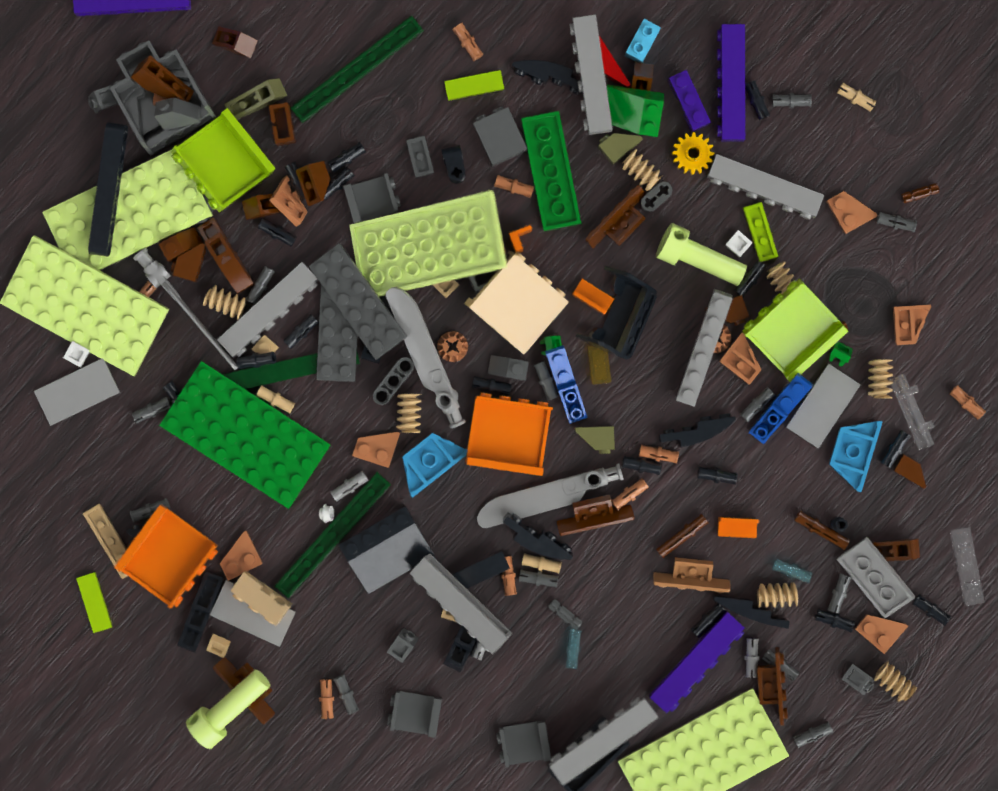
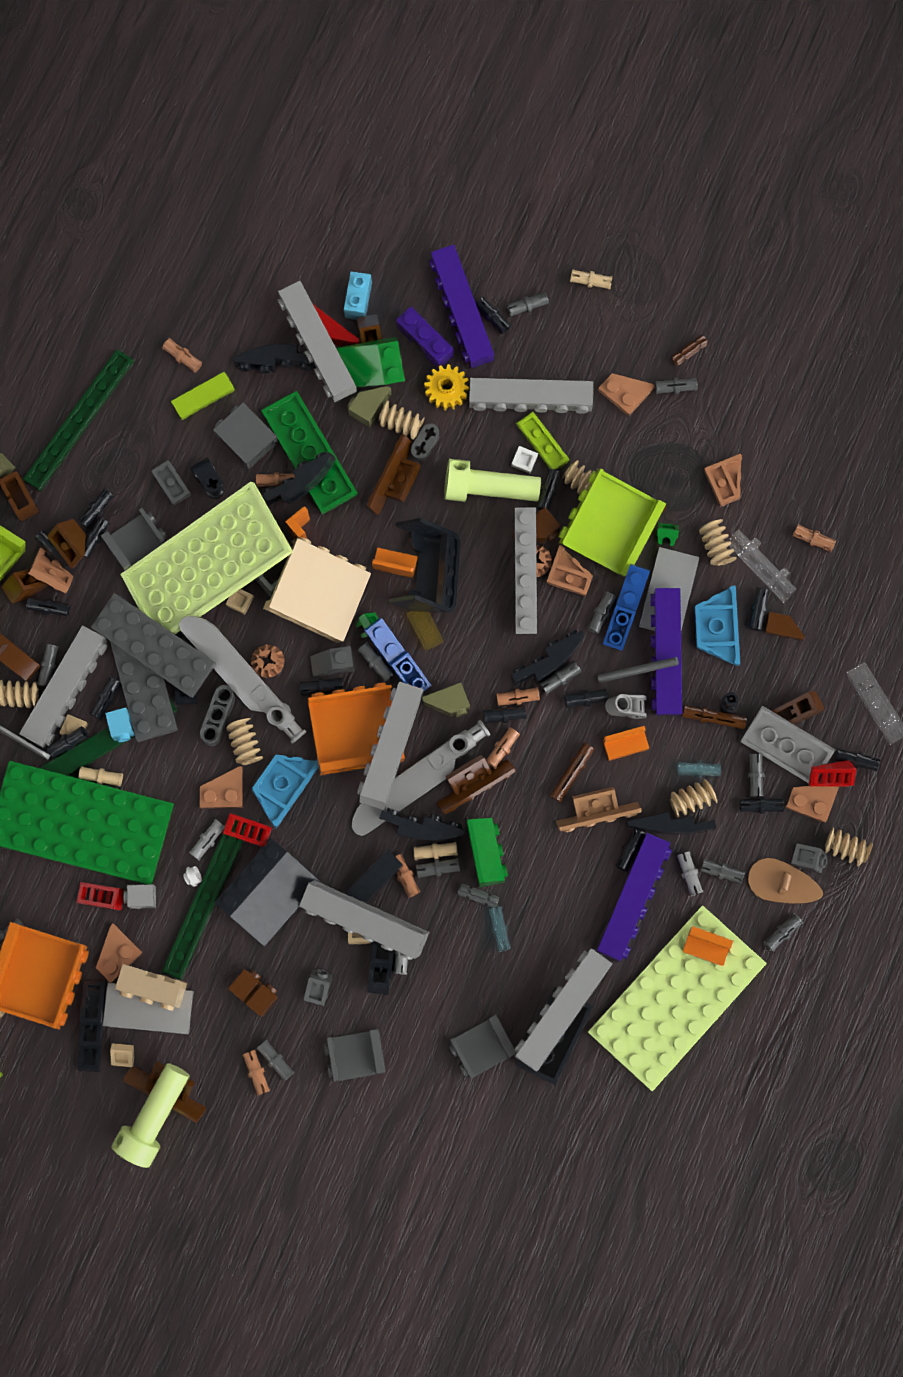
camera: 10 degrees left, 10 degrees down
(256, 510) = (113, 899): none -> red slope
(276, 516) = (140, 896): none -> light grey brick
(306, 362) = (120, 725): none -> medium azure brick
(346, 630) = (253, 992): none -> reddish brown piece
(398, 501) = (264, 836): none -> red slope
(534, 463) = (391, 745): none -> light grey brick
(540, 196) = (306, 478): none -> black slope
(585, 580) = (486, 851): none -> green slope
(701, 449) = (560, 677): none -> dark grey pin
(744, 726) = (707, 946): none -> orange panel
(752, 496) = (630, 706): none -> light grey piece
(770, 685) = (719, 895): reddish brown bracket -> none
(771, 468) = (638, 669): none -> dark grey bar
(802, 460) = (667, 645): none -> dark purple brick
(827, 692) = (782, 883): none -> medium nougat shield
(911, 617) = (845, 777): none -> red slope

